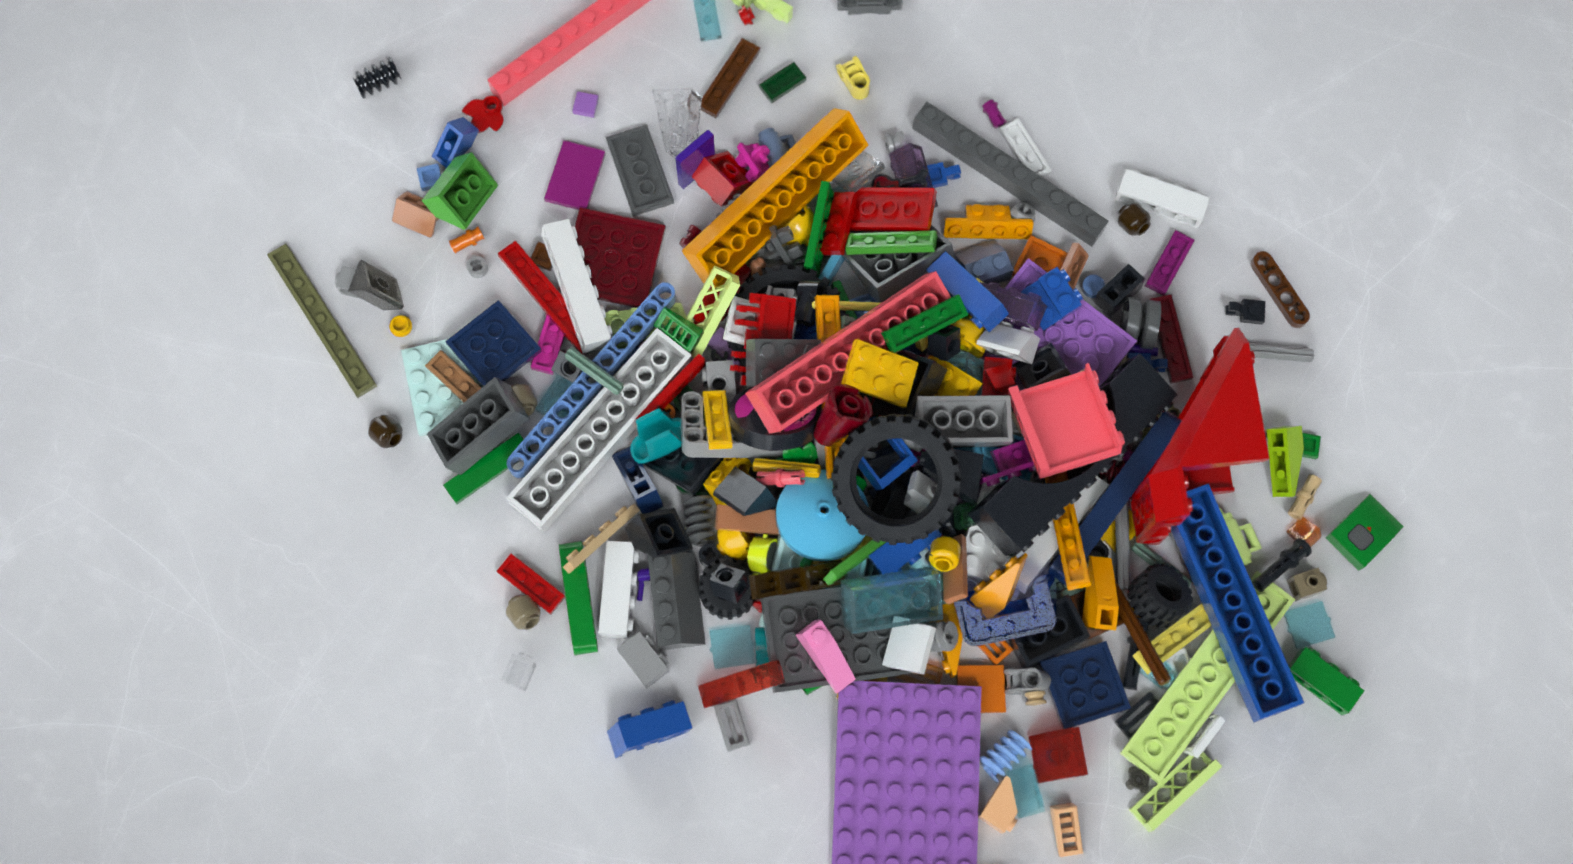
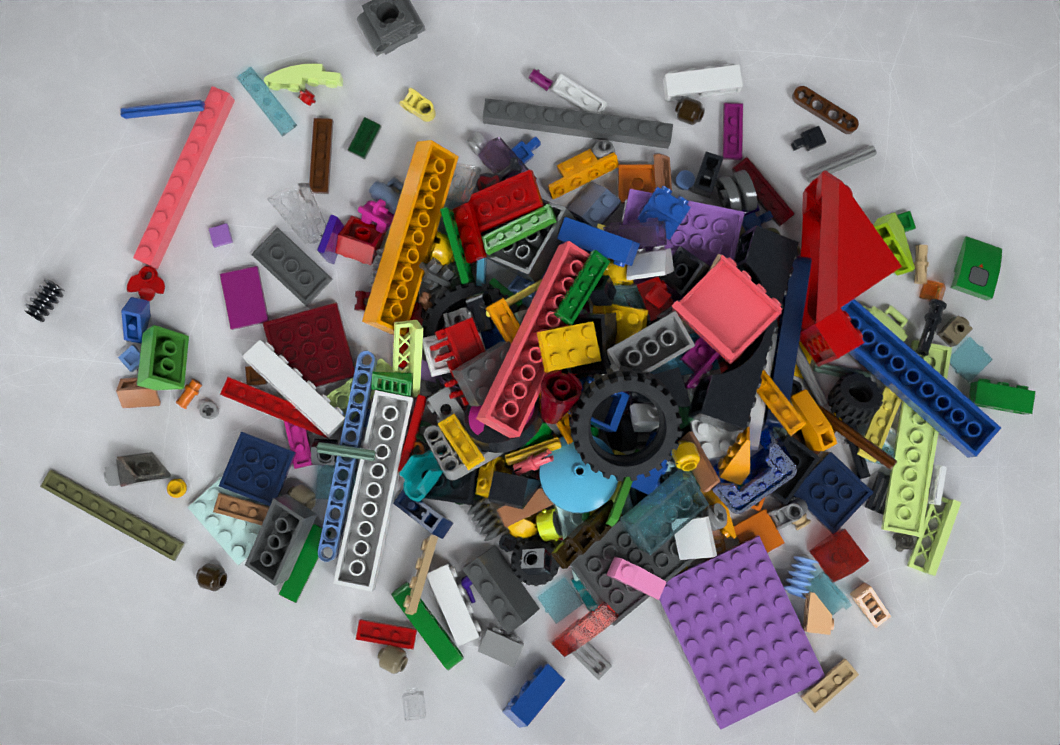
camera: 25 degrees left, 10 degrees up
(659, 533) = (464, 550): black slope -> none

